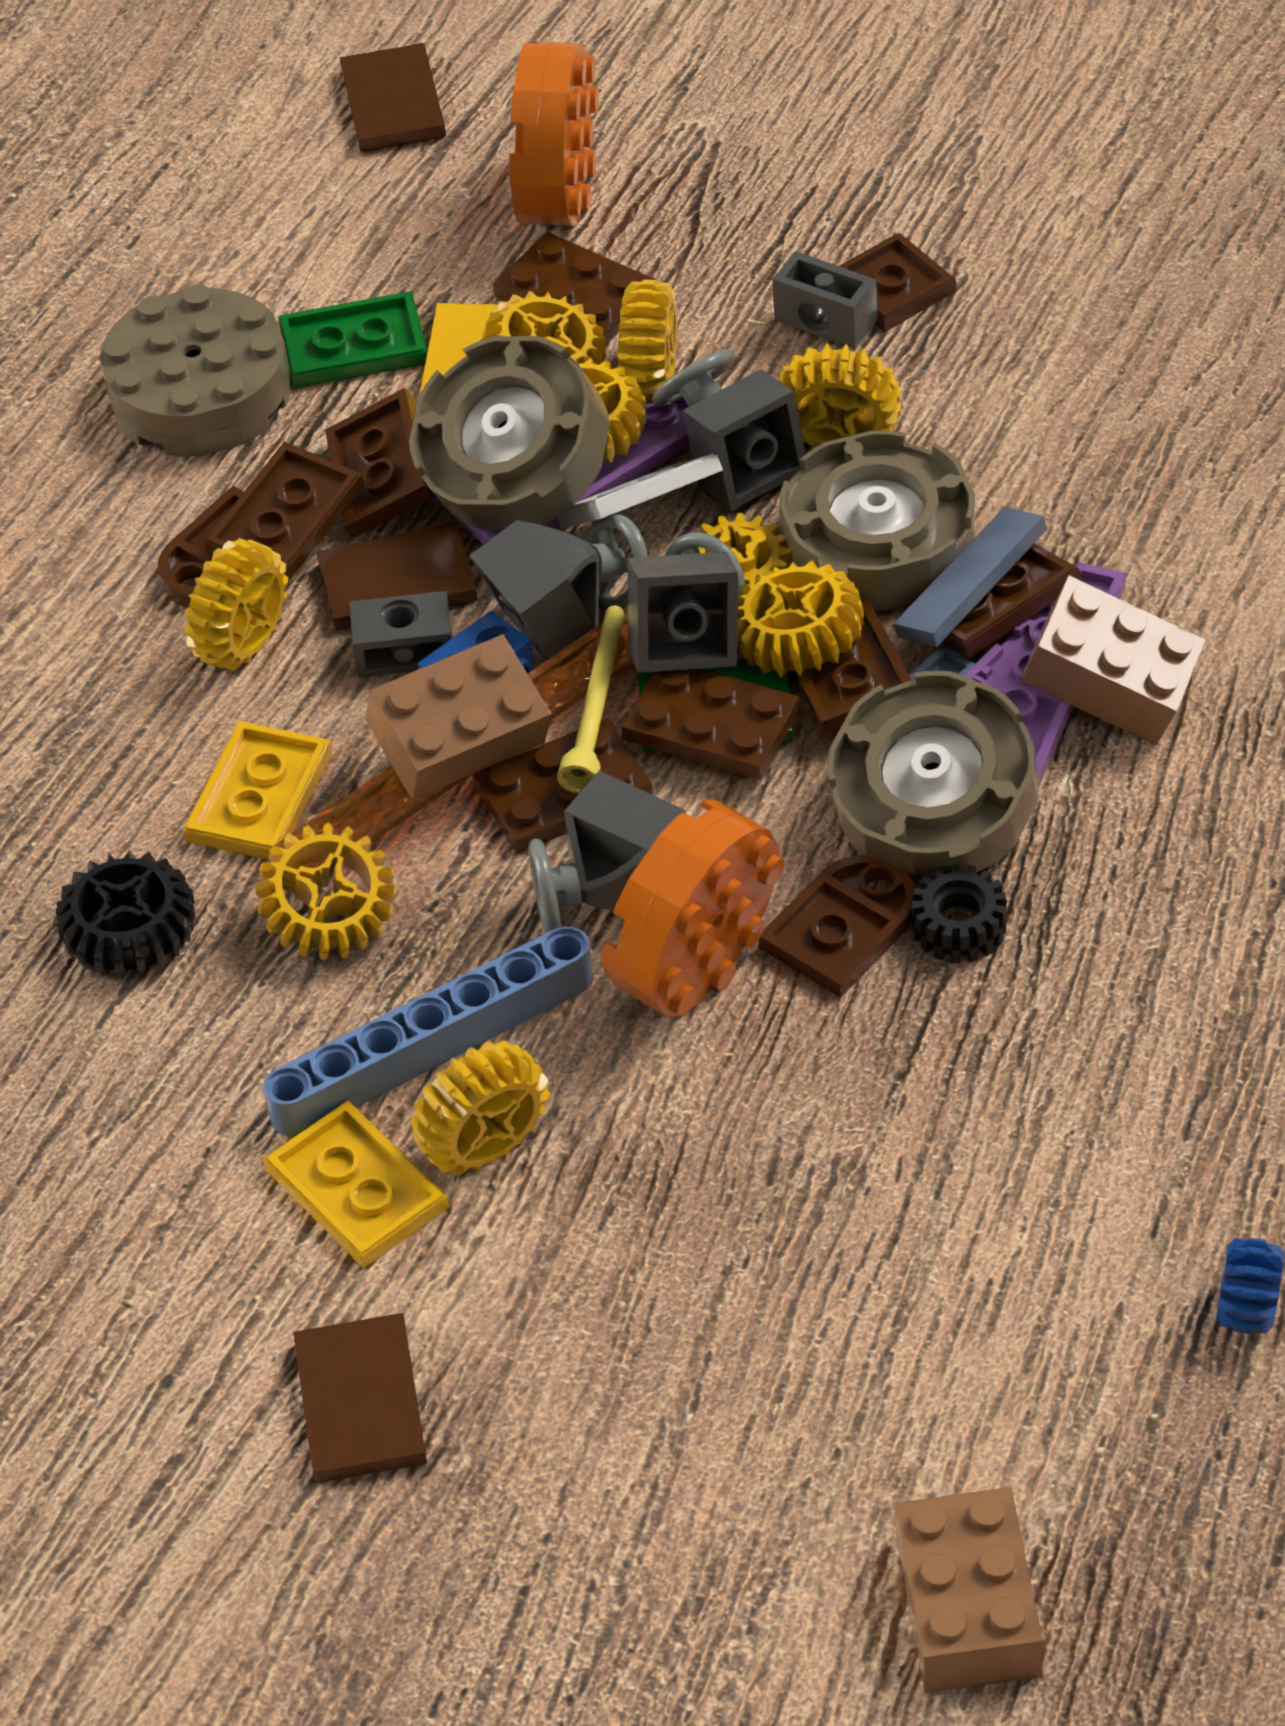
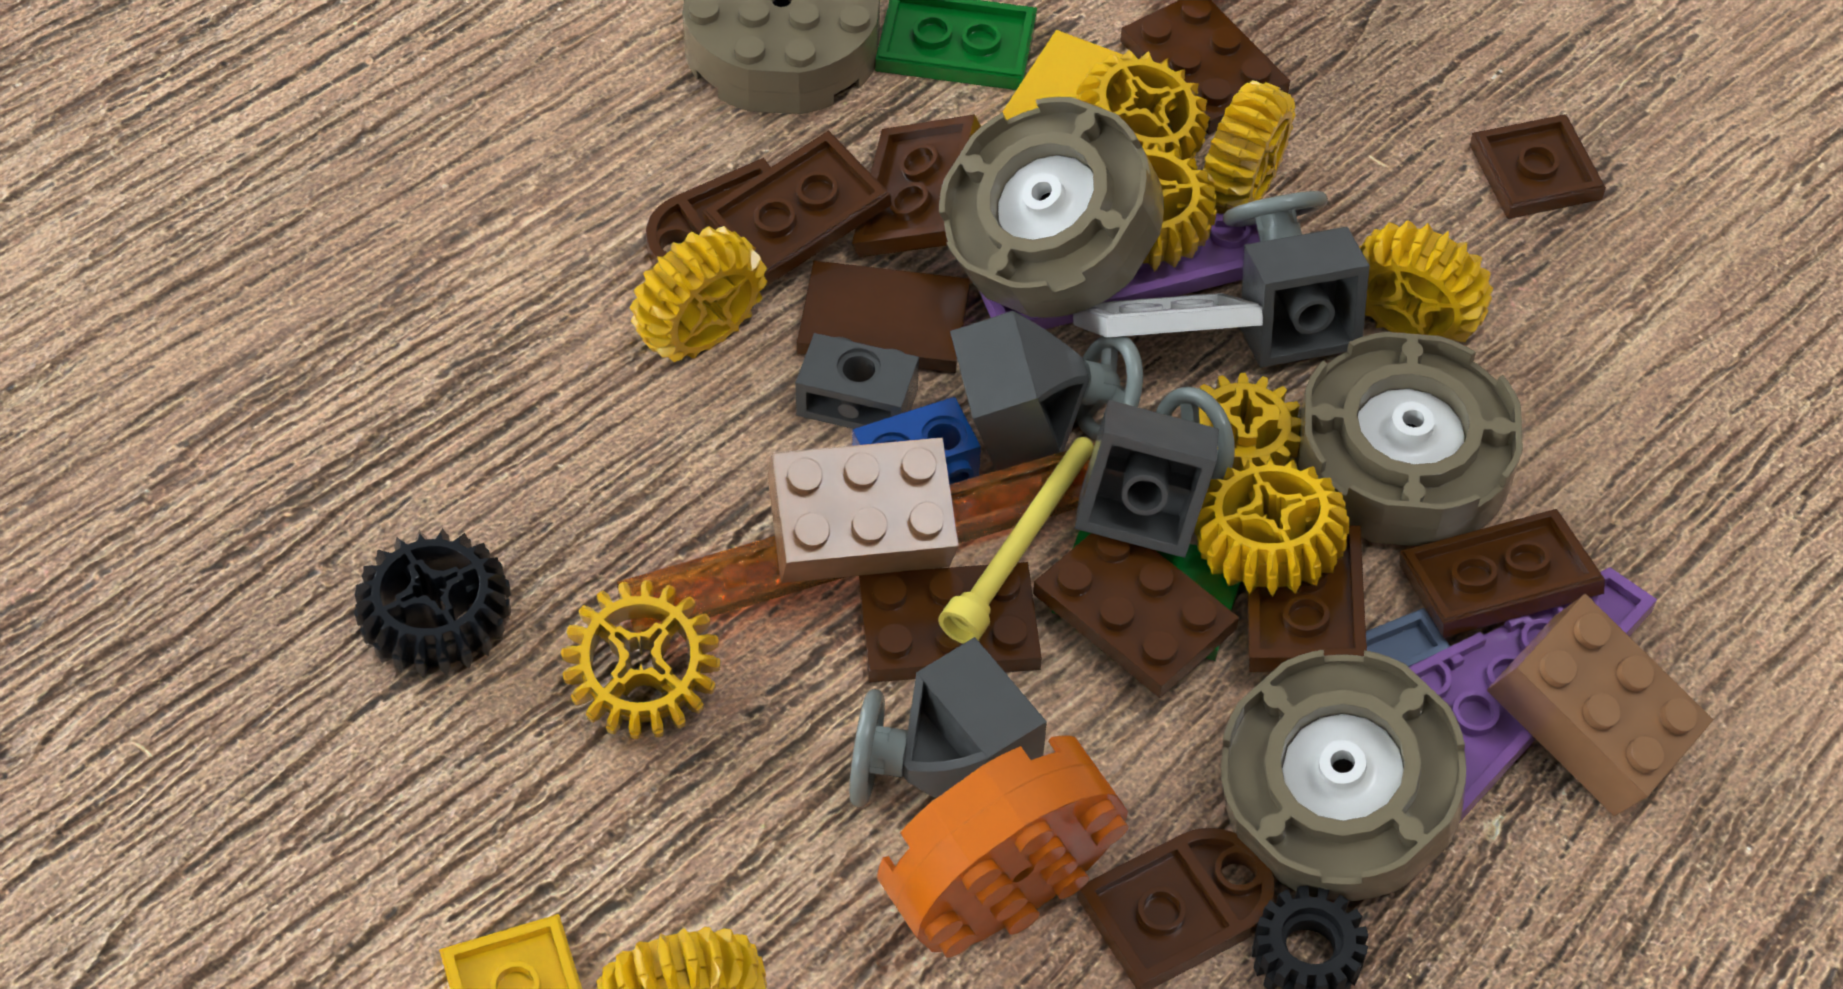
camera: 15 degrees right, 5 degrees up
(257, 789) = (635, 508): yellow tile -> none
(429, 1030) = (651, 852): medium blue beam -> none
(825, 299) = (1455, 165): dark grey brick -> none
(970, 576) = (1481, 543): sand blue tile -> none

